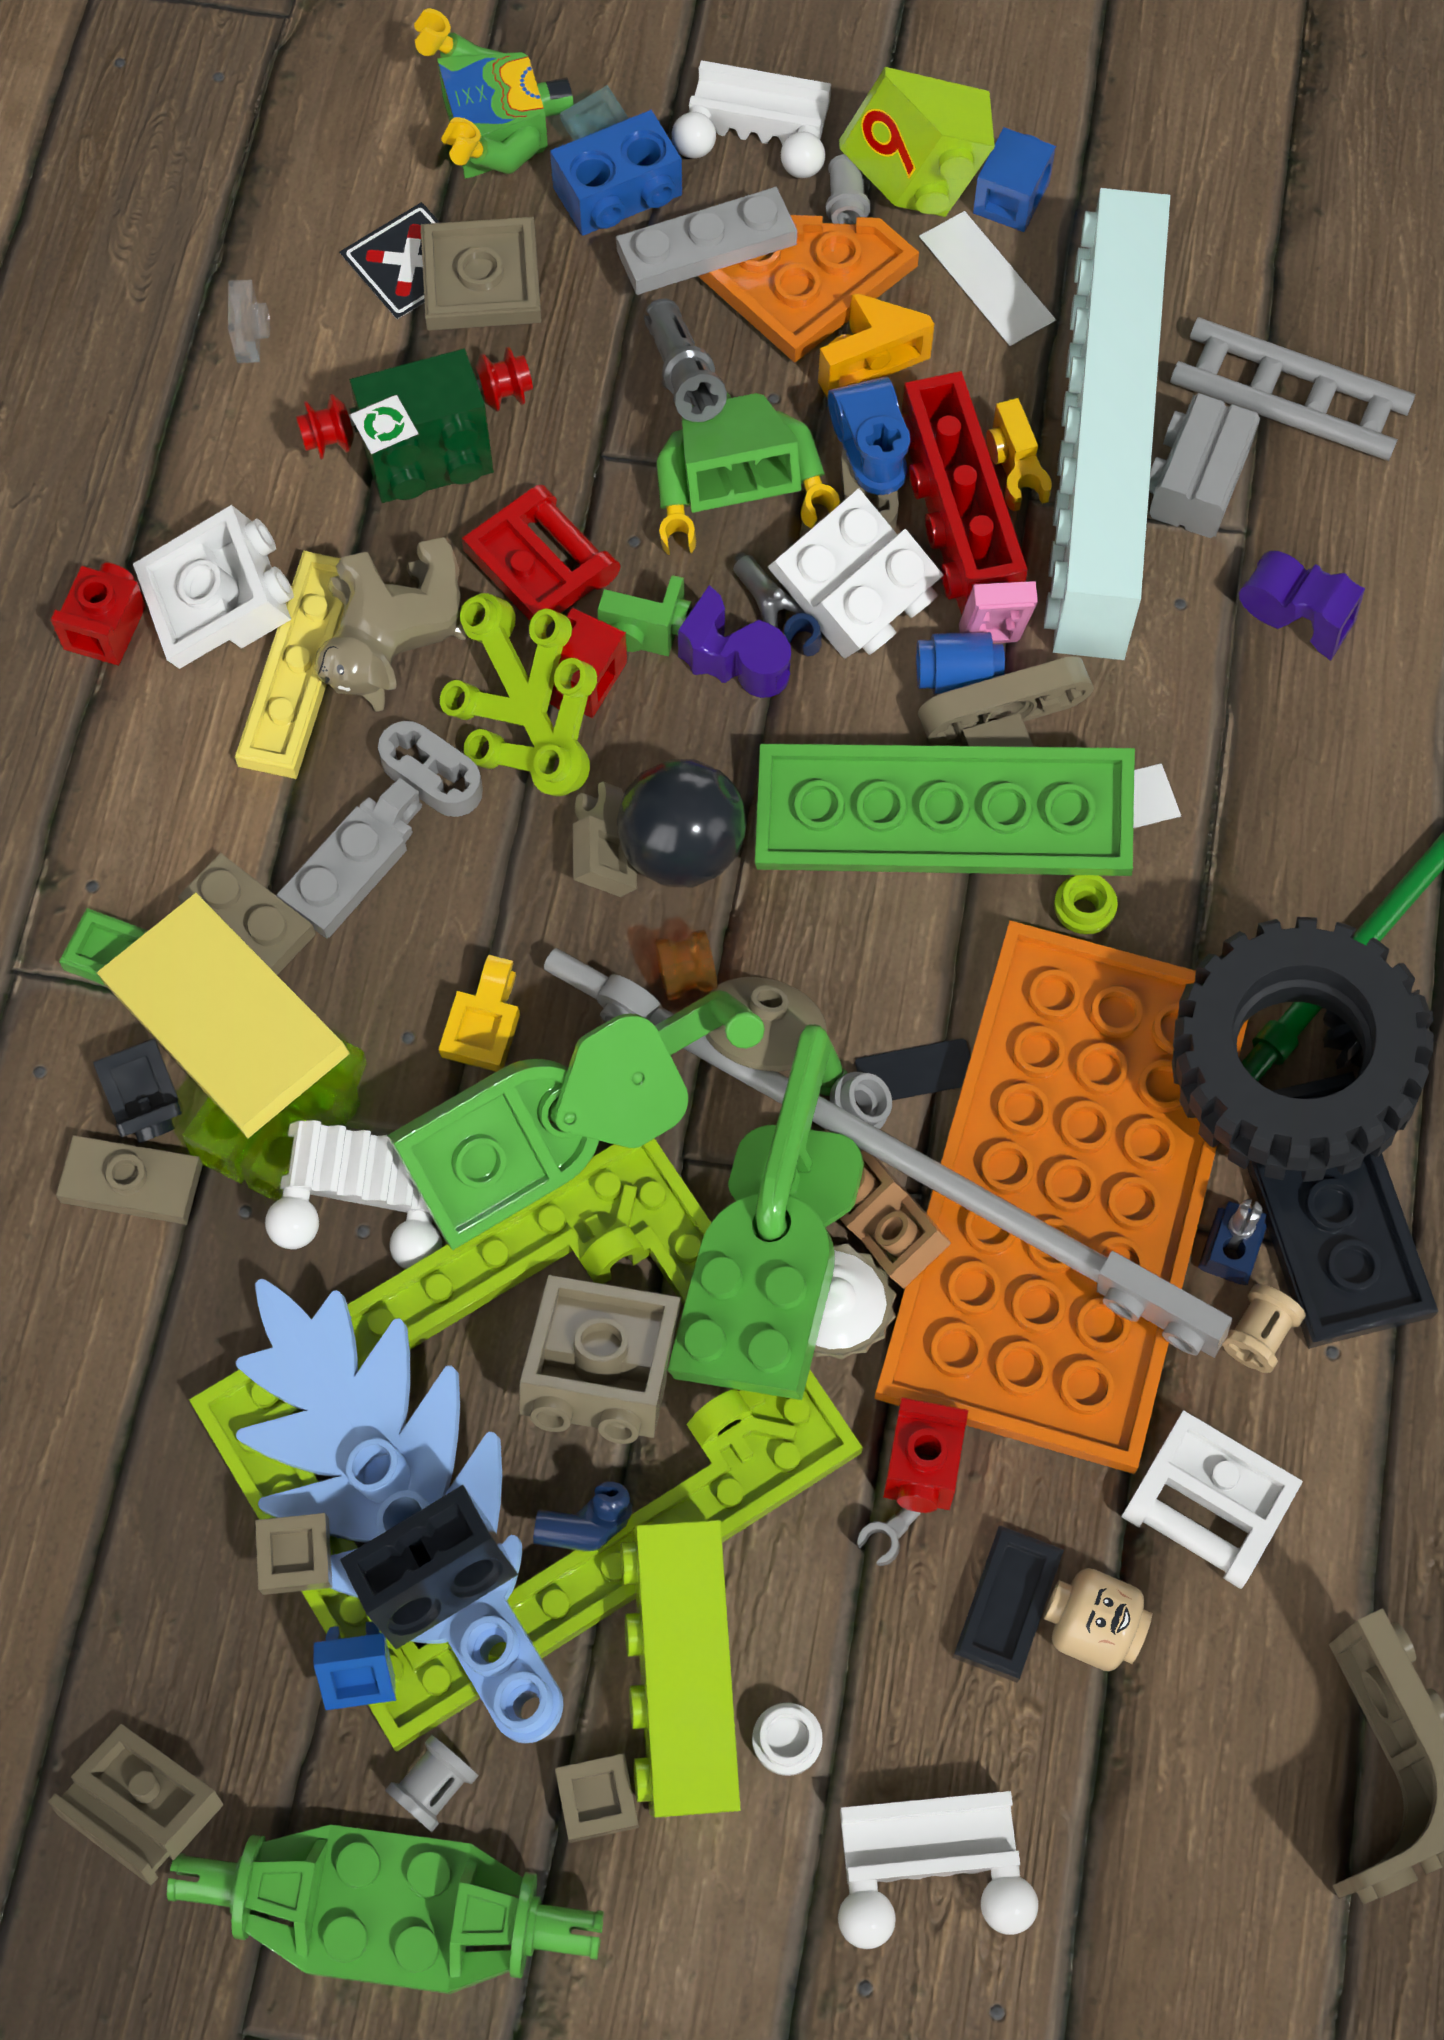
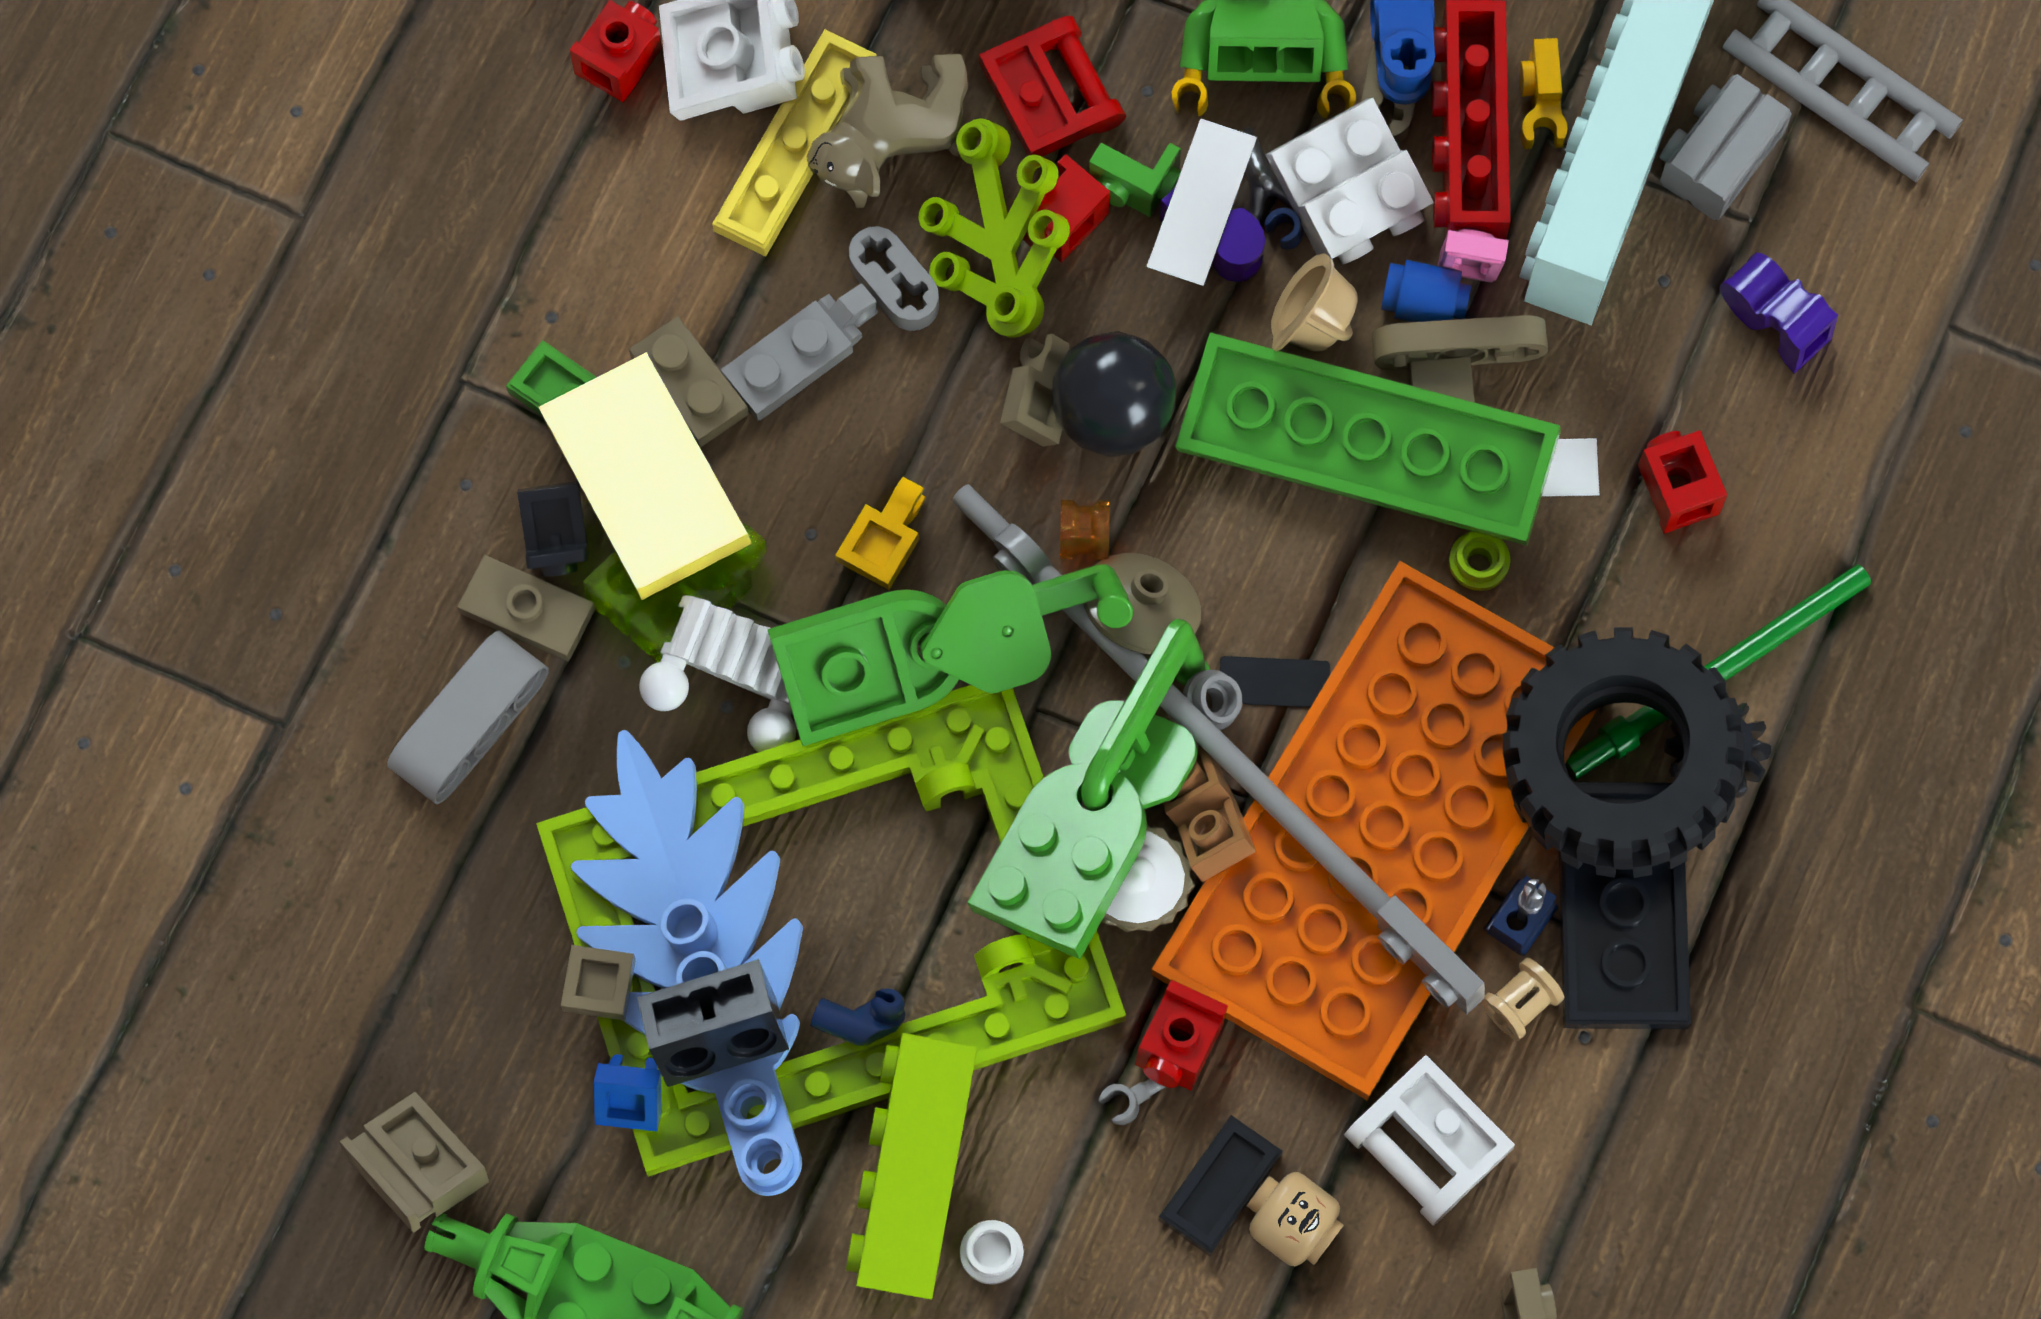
camera: 15 degrees right, 5 degrees up
(91, 1307) = (467, 717): none -> light grey beam
(431, 1783) = (672, 1210): light grey bush -> none
(596, 1798) = (812, 1259): dark tan plate -> none
(598, 1359) = (908, 877): dark tan plate -> none
(718, 623) = (1201, 202): none -> white sticker
(855, 697) = (1314, 307): none -> tan piece
(1270, 763) = (1690, 459): none -> red brick

